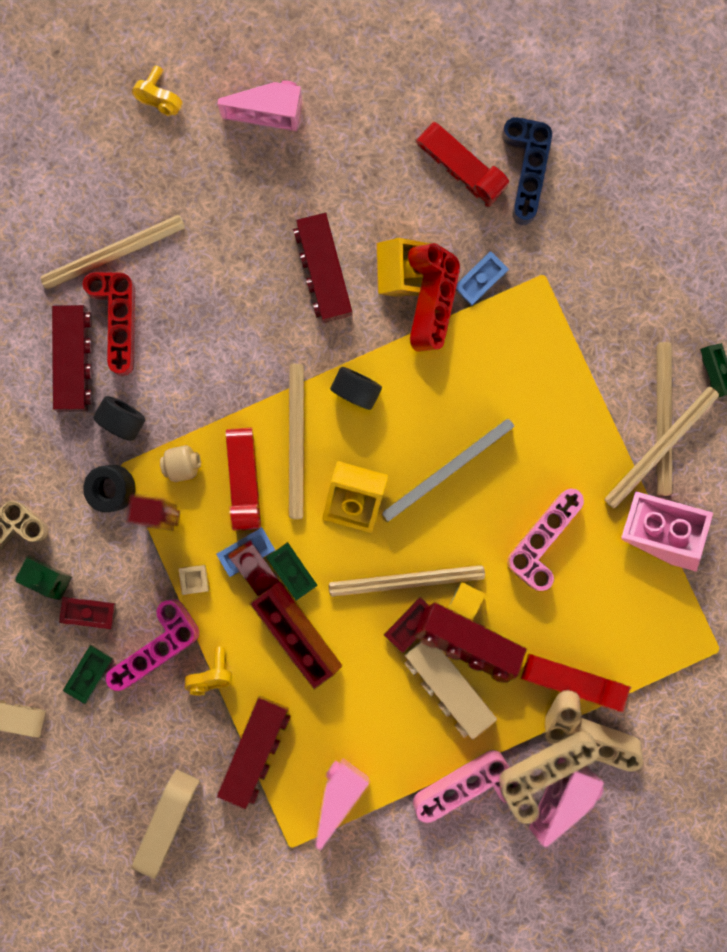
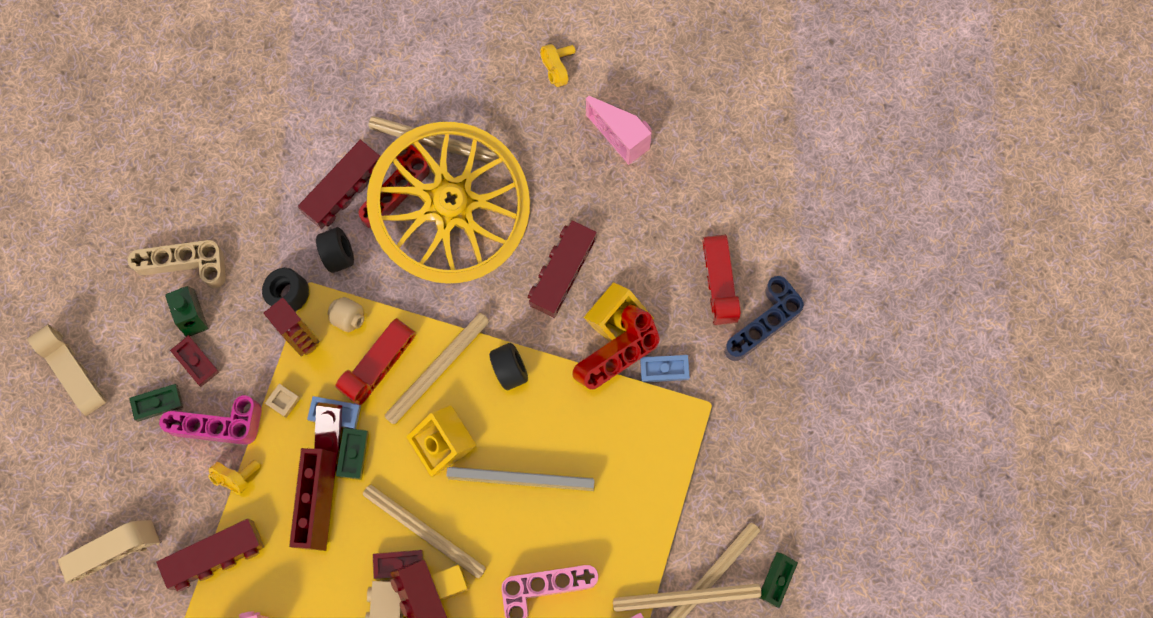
camera: 45 degrees right, 10 degrees down
(165, 298) = (445, 214): none -> yellow wheel

